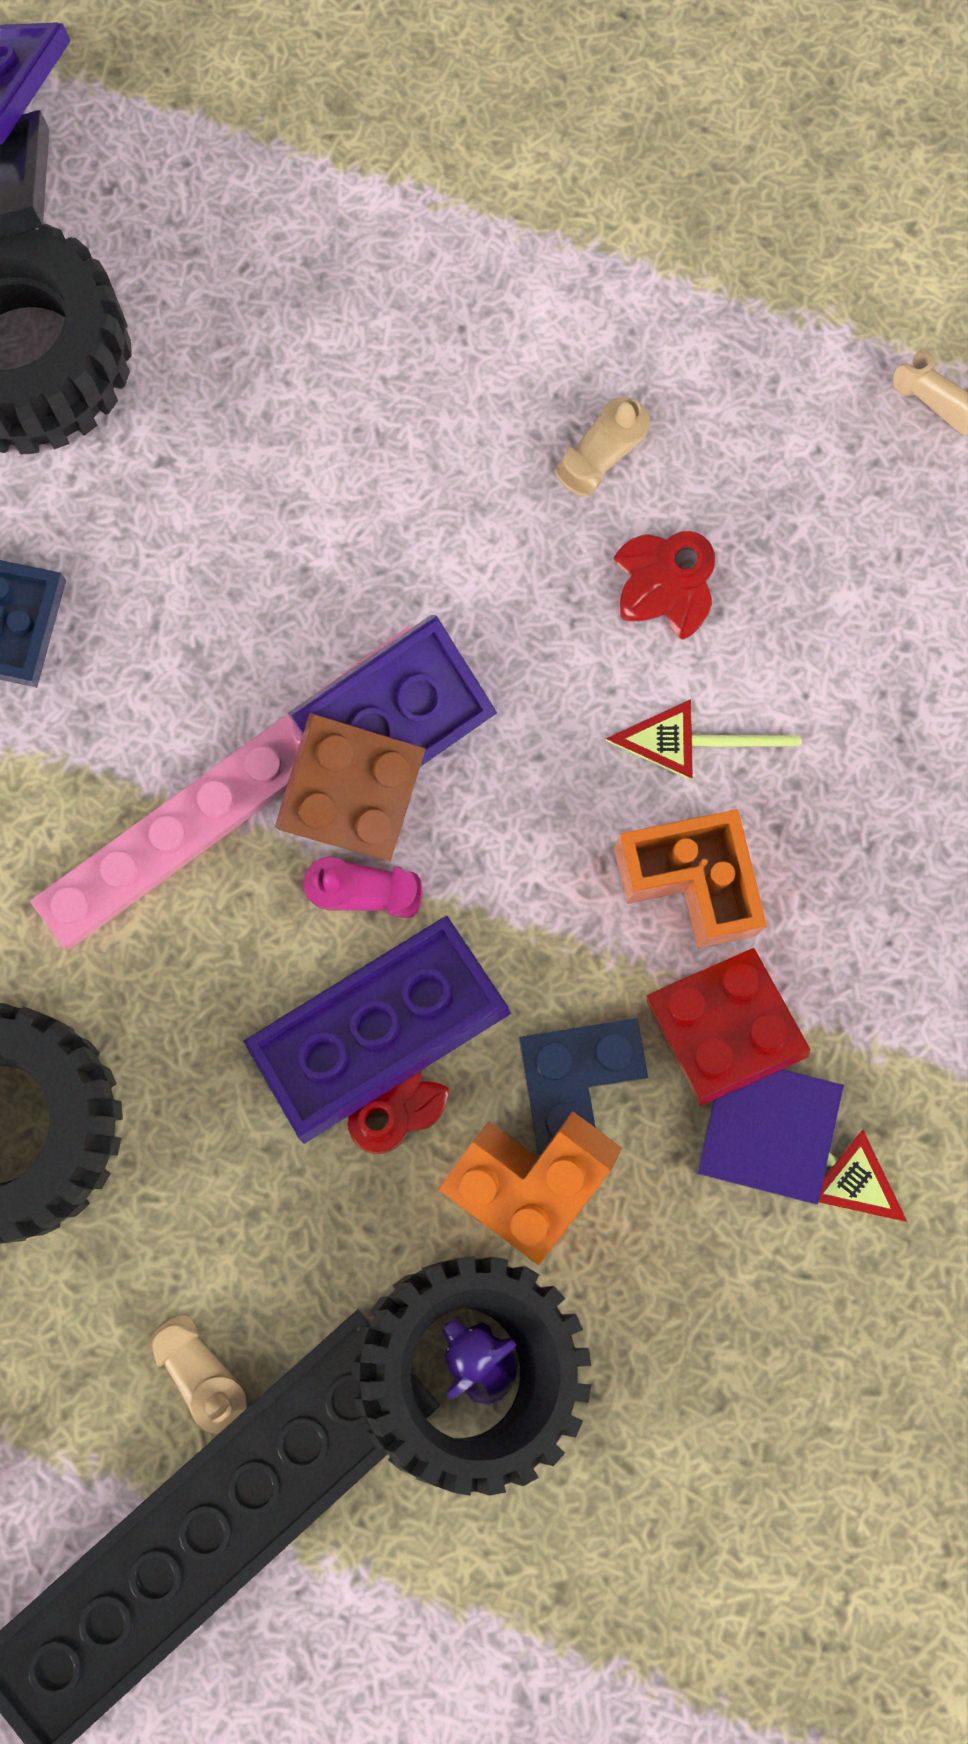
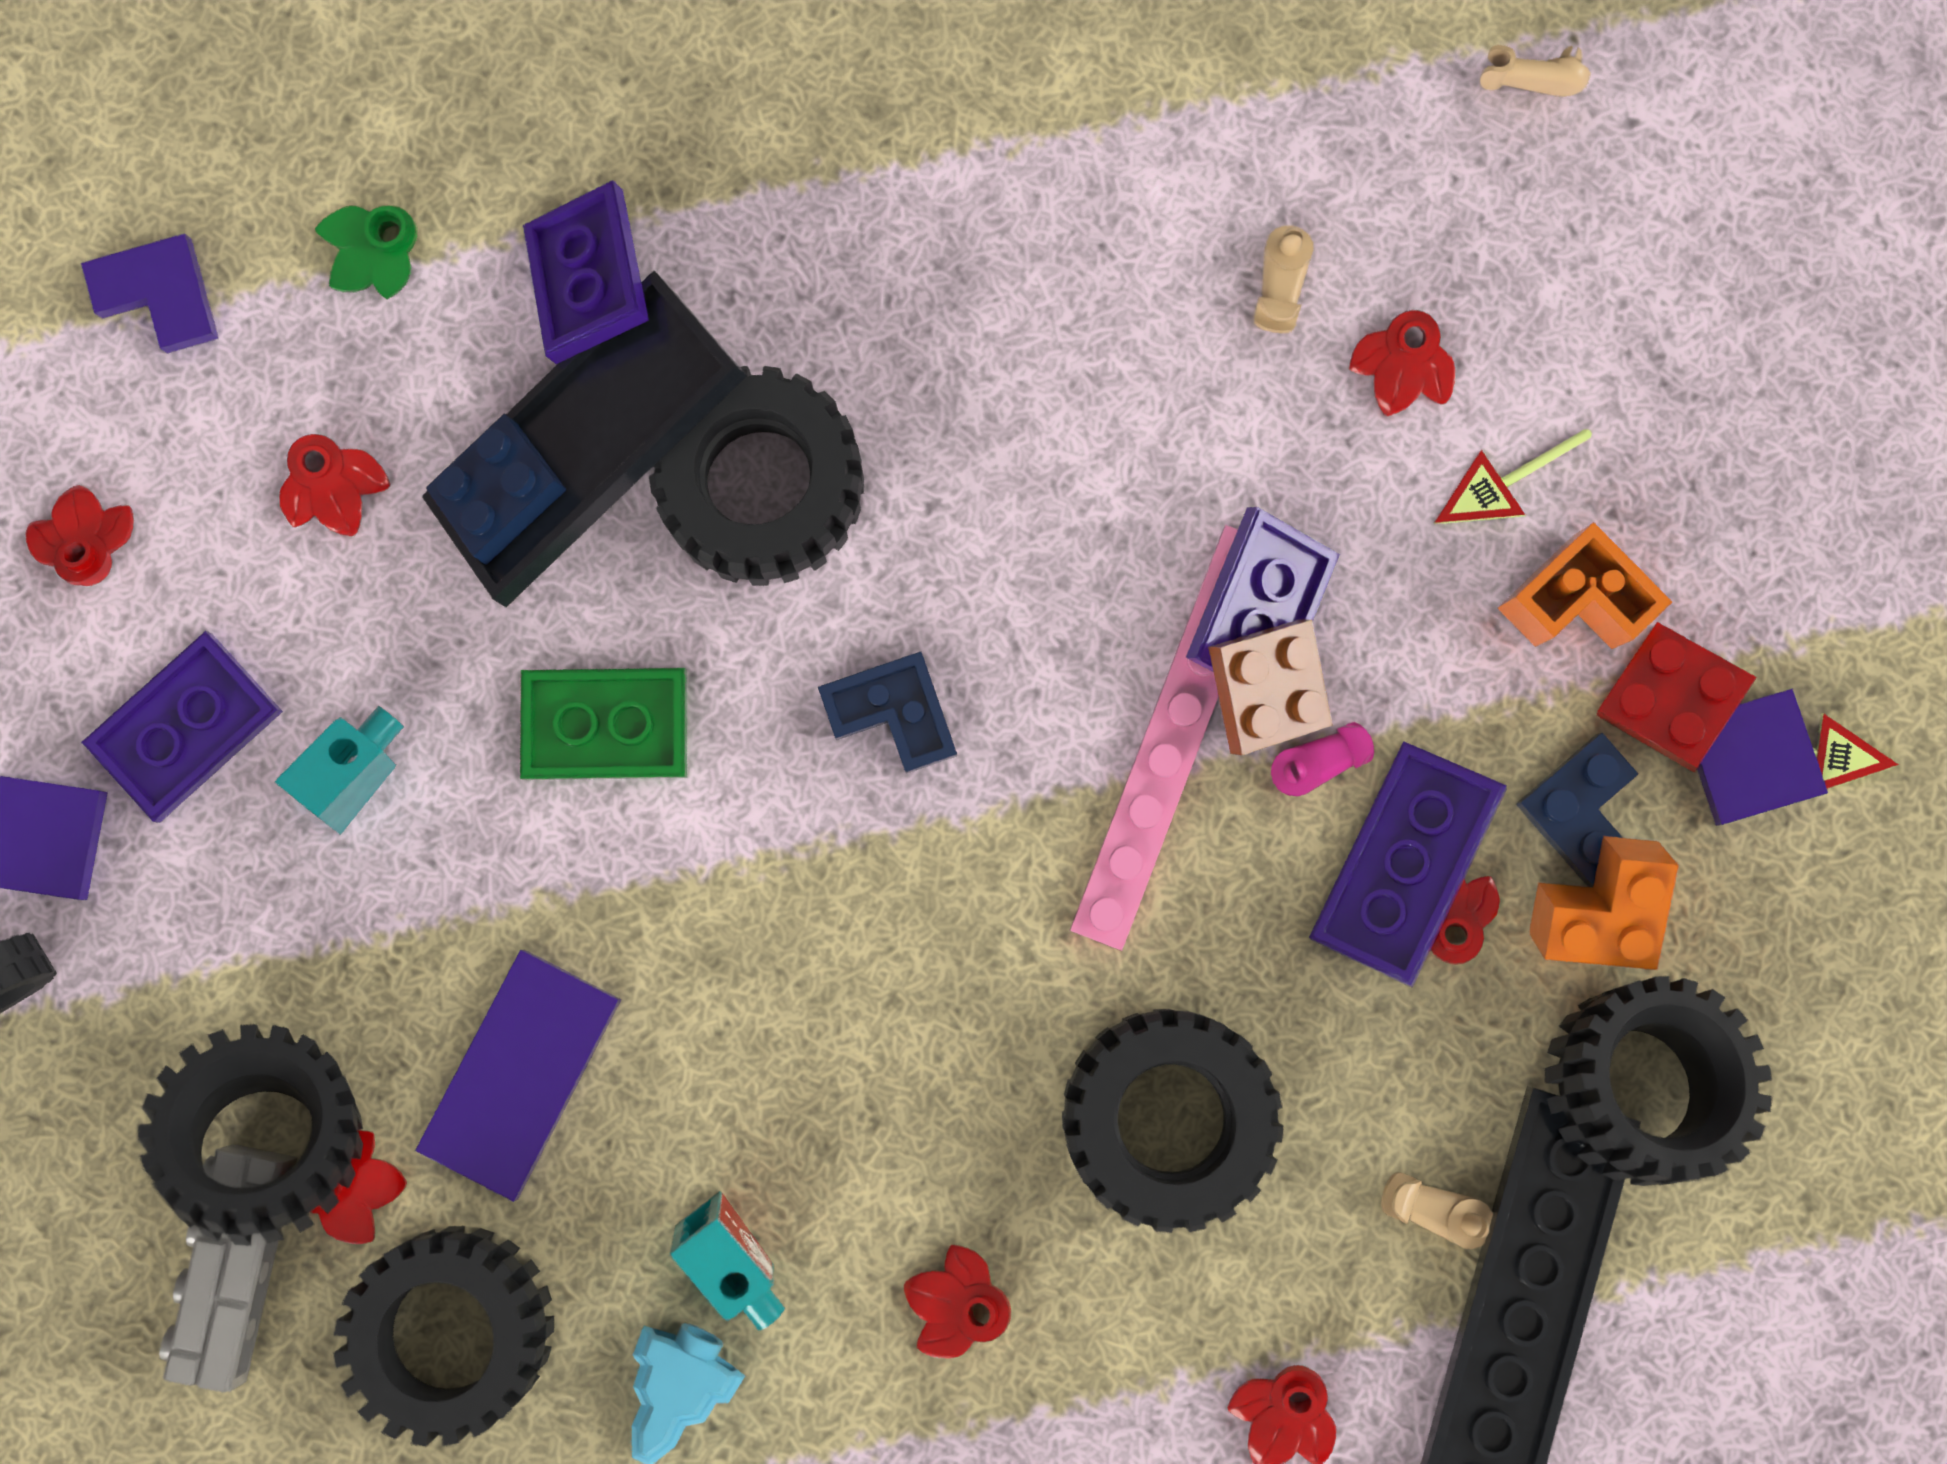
camera: 30 degrees left, 5 degrees up
(479, 1362) = (1652, 1069): dark purple animal -> none

